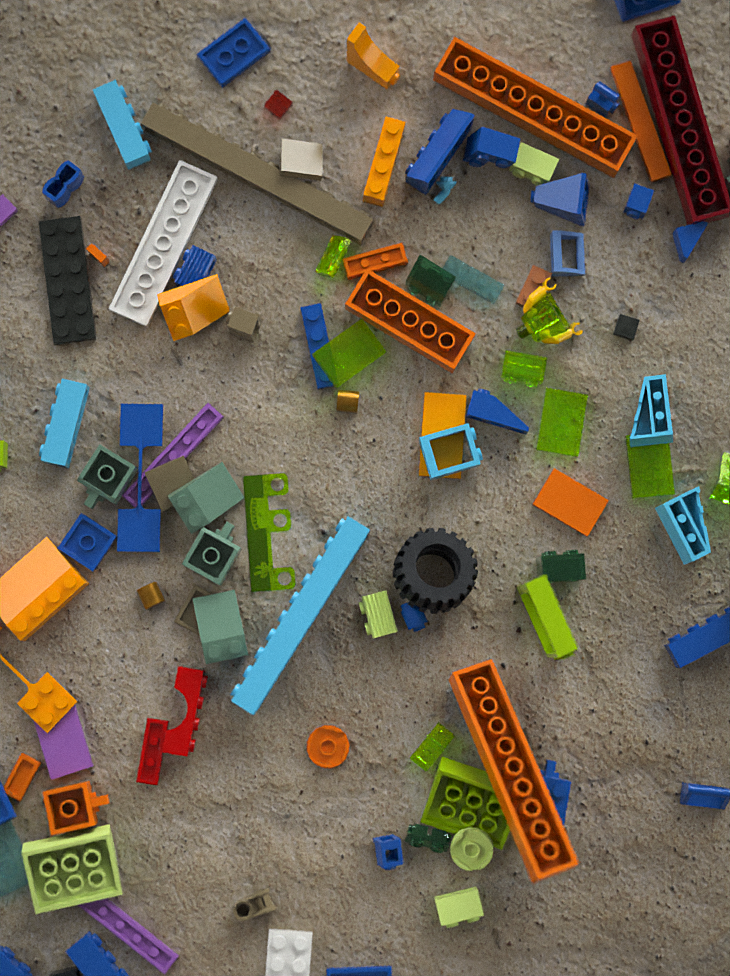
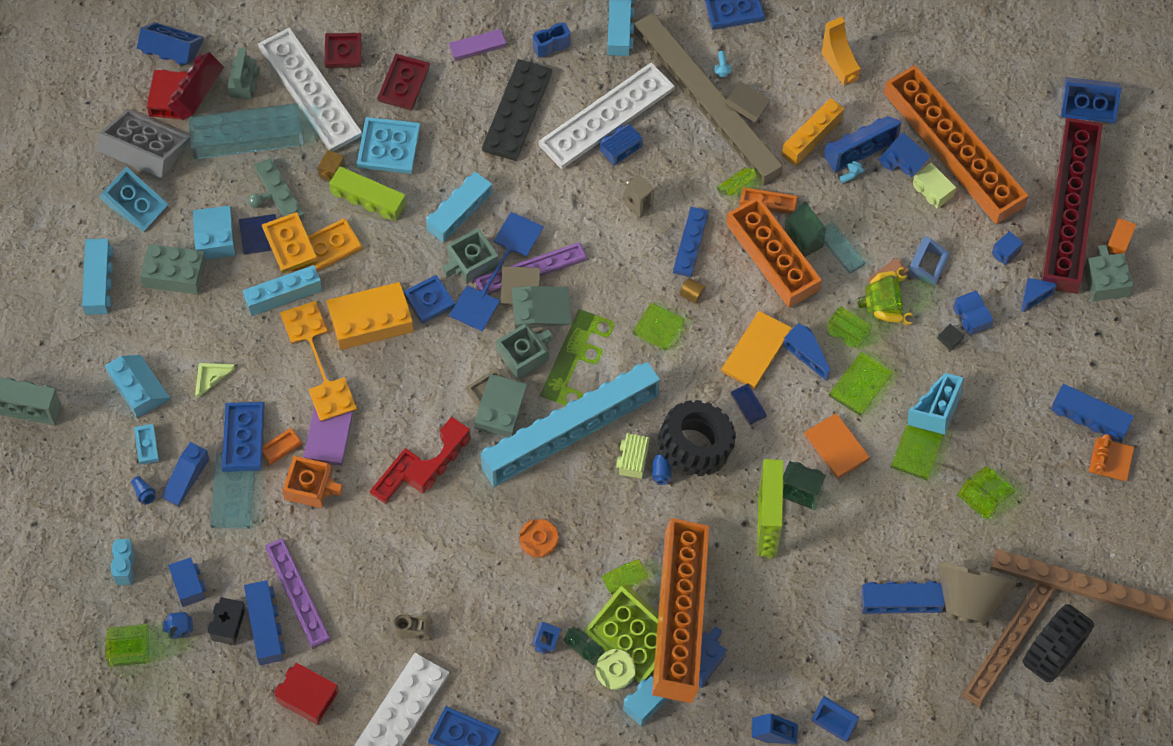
camera: 30 degrees right, 20 degrees down
(72, 869) = (283, 528): yellowish green slope -> none
(97, 255) = (550, 101): orange tile -> none
(150, 595) = (457, 359): pearl gold brick -> none
(193, 306) = (605, 165): light orange slope -> none
(257, 131) = (724, 68): none -> medium azure plate
(278, 104) = (750, 58): clear red tile -> none
(332, 457) = (658, 326): none -> clear neon green tile
(349, 353) = (712, 255): clear neon green tile -> none
(459, 907) = (581, 708): yellowish green brick -> none
(462, 499) = (748, 404): none -> clear blue tile
(476, 454) = (756, 374): medium azure window -> none
(513, 872) = (642, 703): none -> medium azure brick
(564, 198) = (947, 219): slope -> none
(603, 99) = (1015, 162): blue brick -> none
(637, 290) = (973, 312): none -> blue brick
(640, 121) = (1039, 193): orange tile -> none
(652, 835) = (774, 729): none -> blue slope
(685, 525) = (924, 498): medium azure wedge -> none

